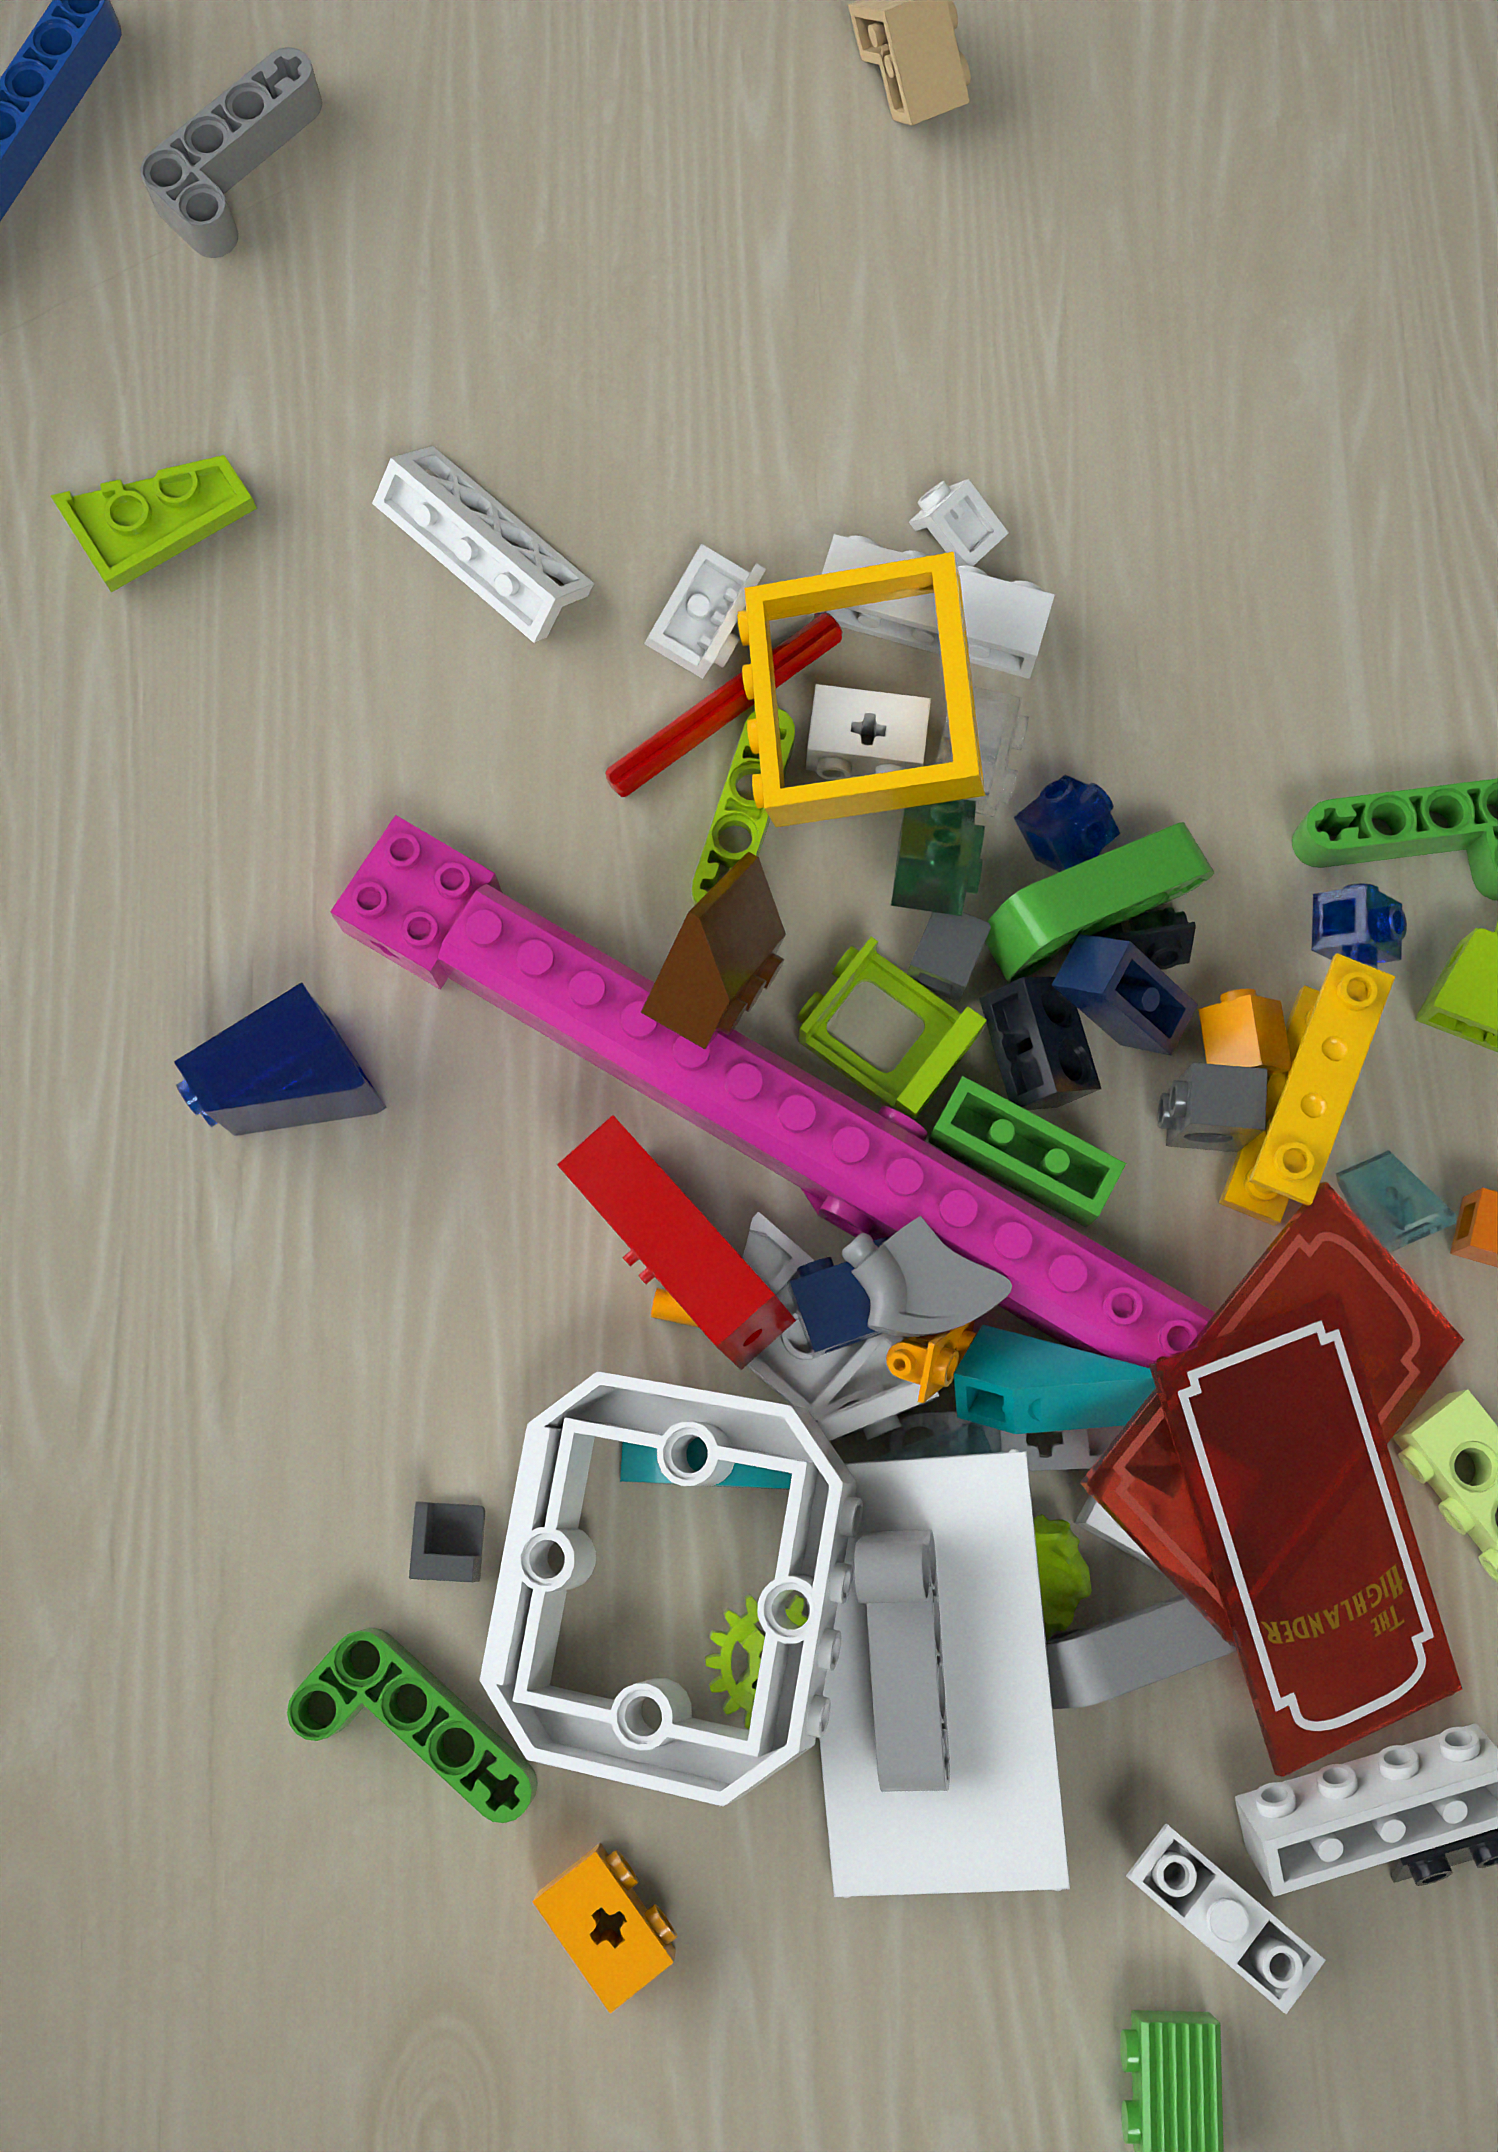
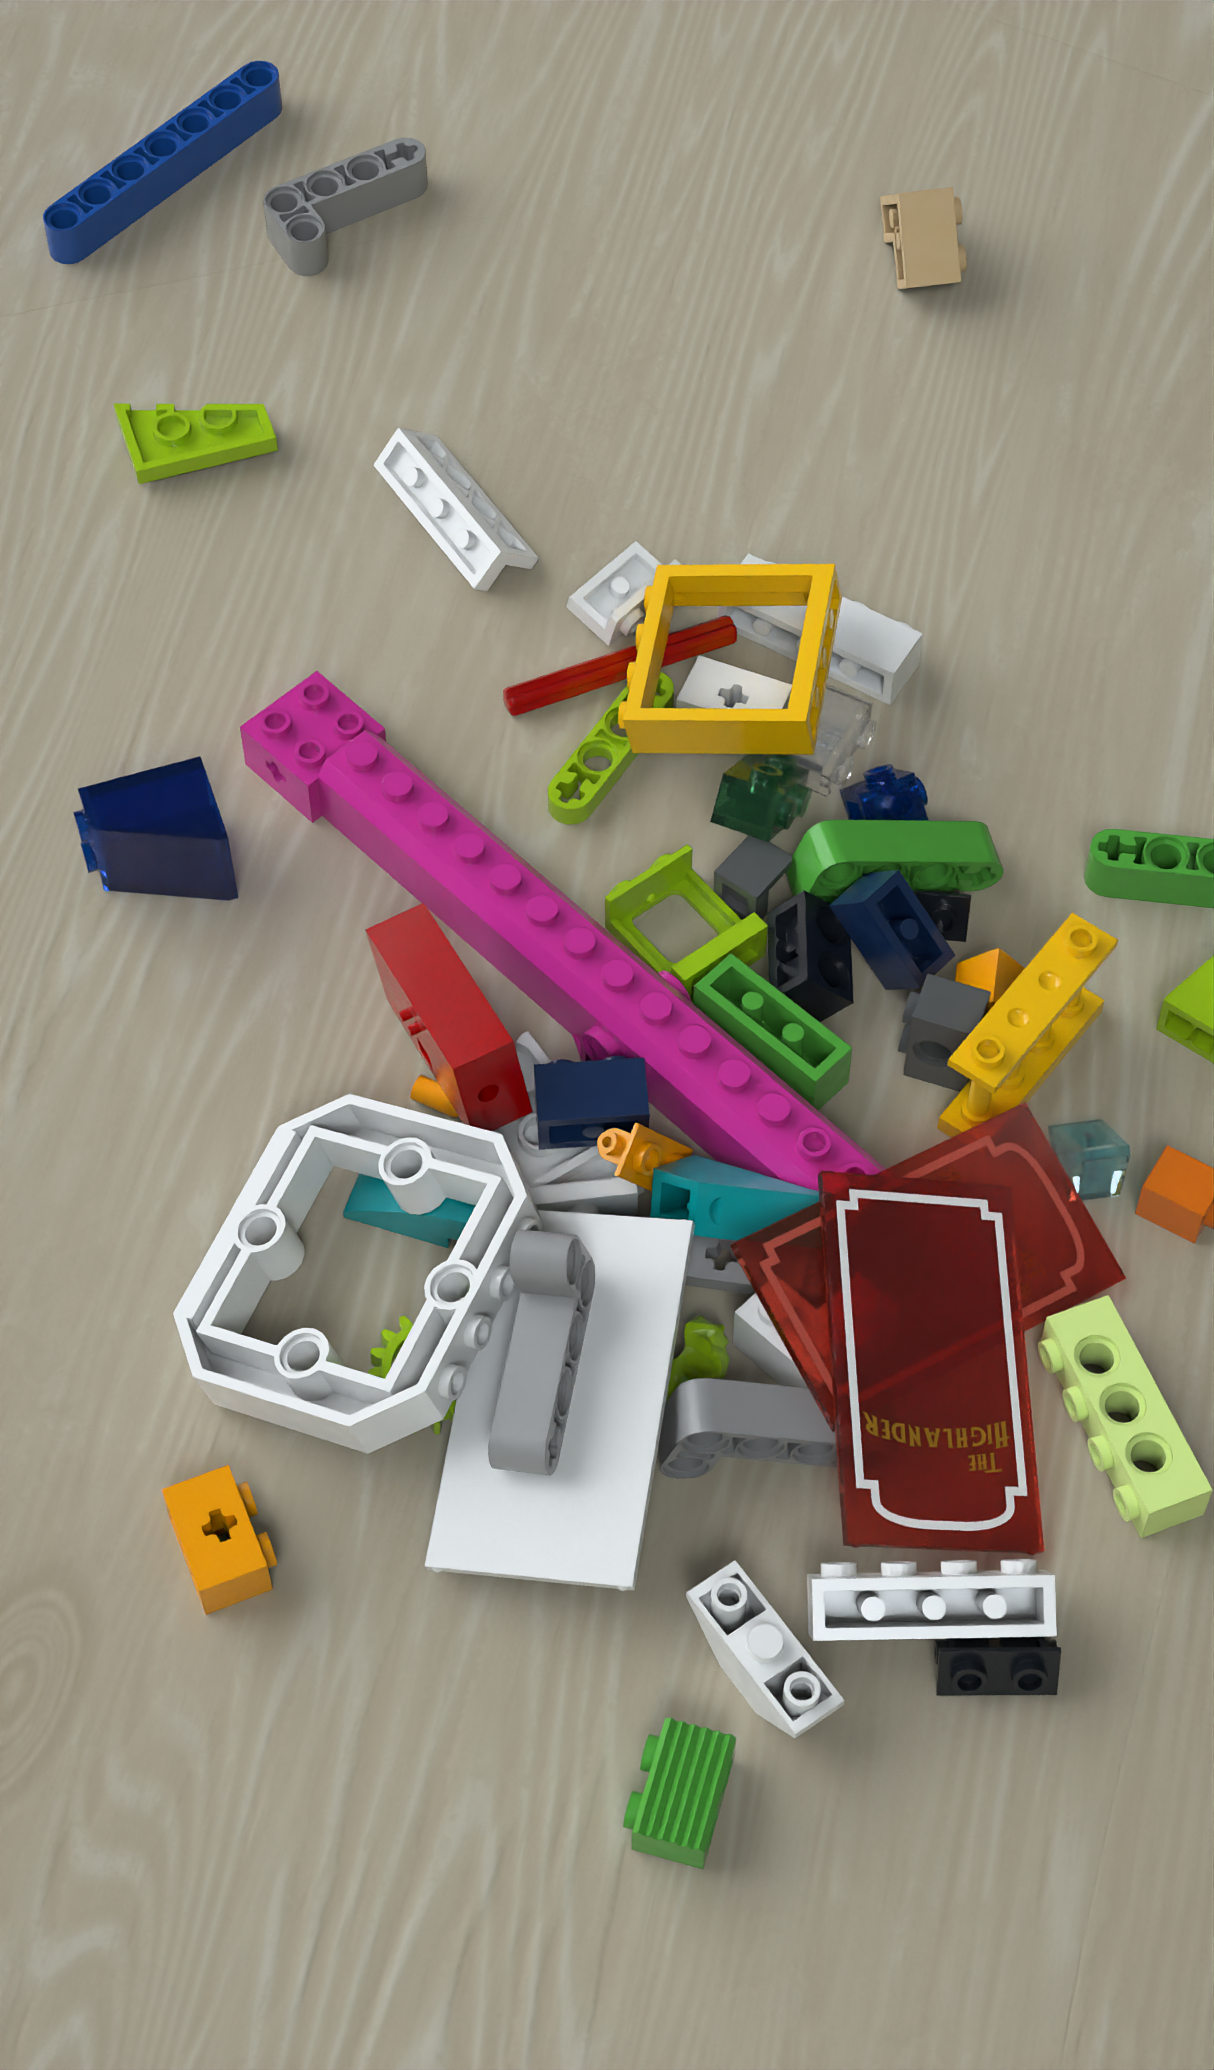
camera: 15 degrees right, 20 degrees down
(422, 1735) = (114, 1352): bright green beam -> none
(447, 1542) = (176, 1222): dark grey panel -> none
(720, 957) = (552, 812): reddish brown slope -> none
(921, 1283) = (645, 1086): light grey arm -> none
(959, 521) = (864, 572): white bracket -> none
(1358, 924) = (1126, 920): clear blue brick -> none

